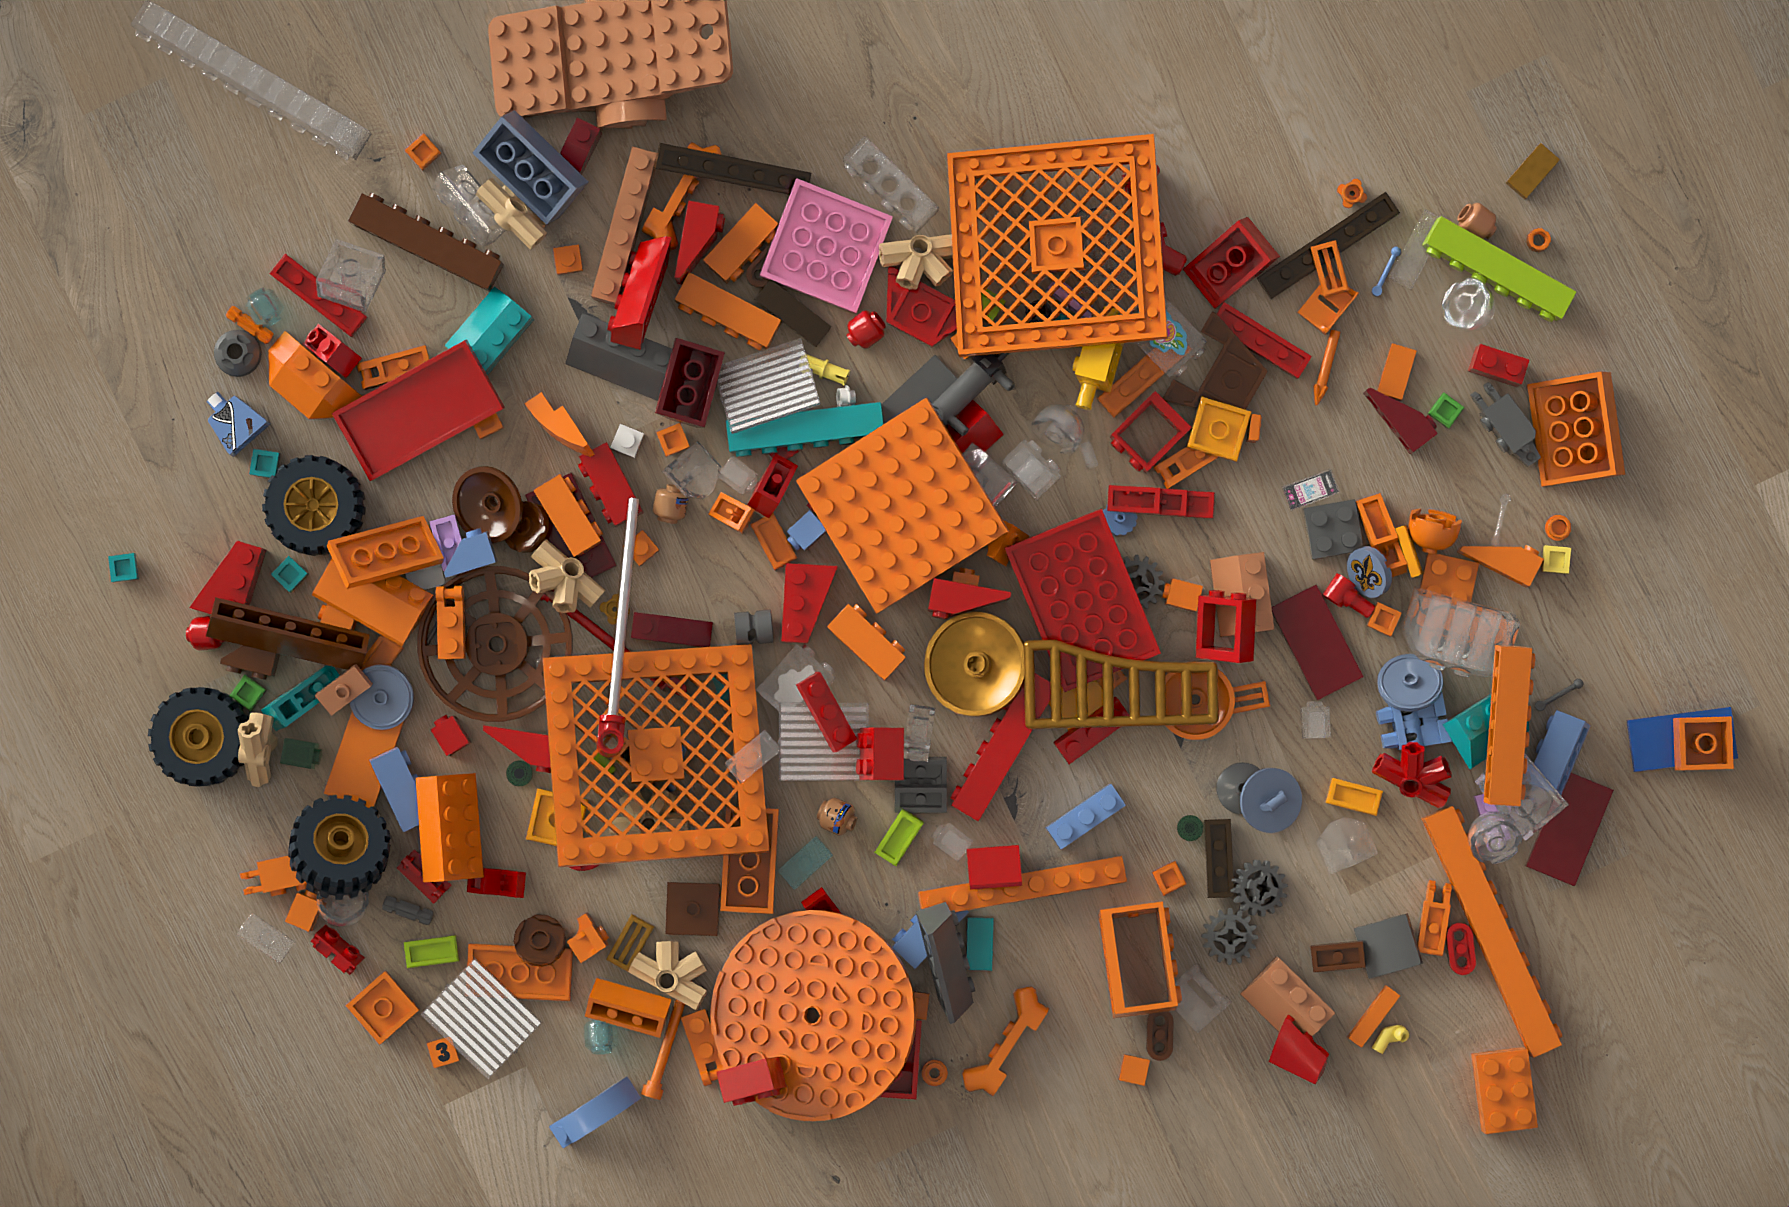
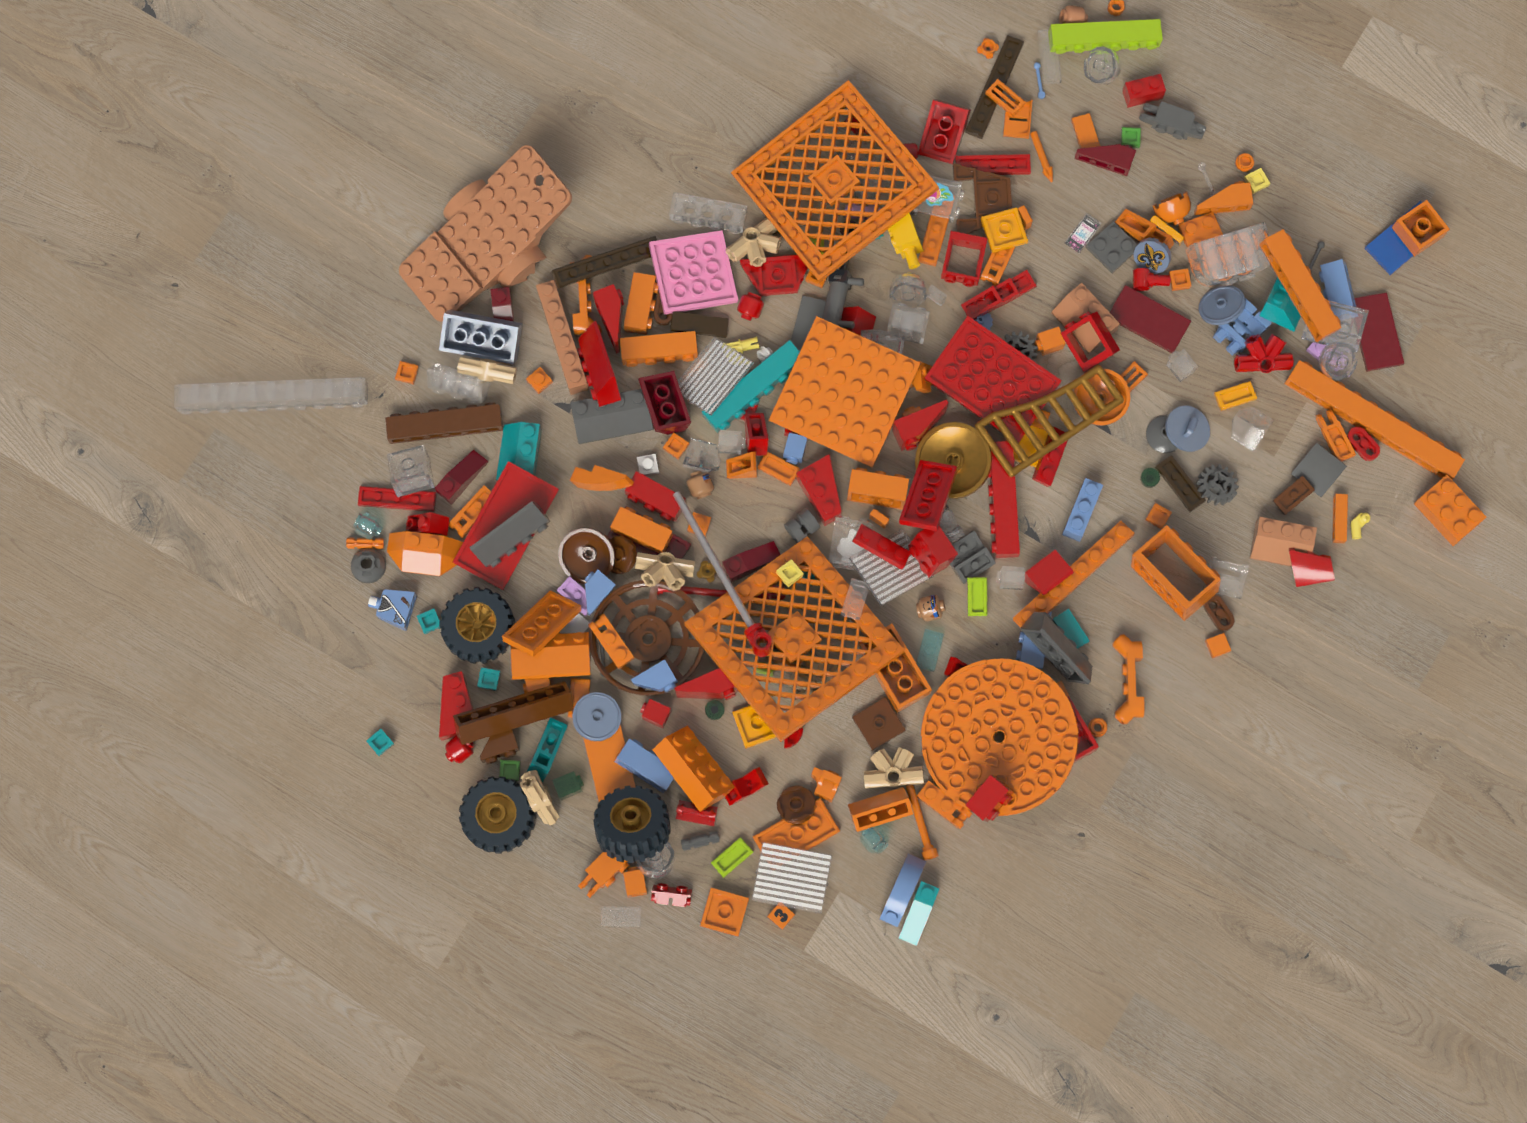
camera: 30 degrees left, 10 degrees down
(343, 689) = (570, 725): nougat plate -> none
(406, 317) = (460, 477): none -> dark red slope
(413, 427) = (510, 534): none -> dark grey slope
(473, 700) = (656, 678): none -> medium blue slope
(488, 426) = (555, 509): orange plate -> none
(596, 1149) = (918, 913): none -> slope
(641, 923) = (861, 767): pearl gold tile -> none
(699, 677) = (789, 573): none -> light yellow plate
(848, 675) = (879, 518): none -> orange tile
(916, 689) = (928, 495): none -> red plate
(1229, 923) = (1216, 519): dark grey gear -> none
(1576, 429) = (1215, 98): orange slope -> none

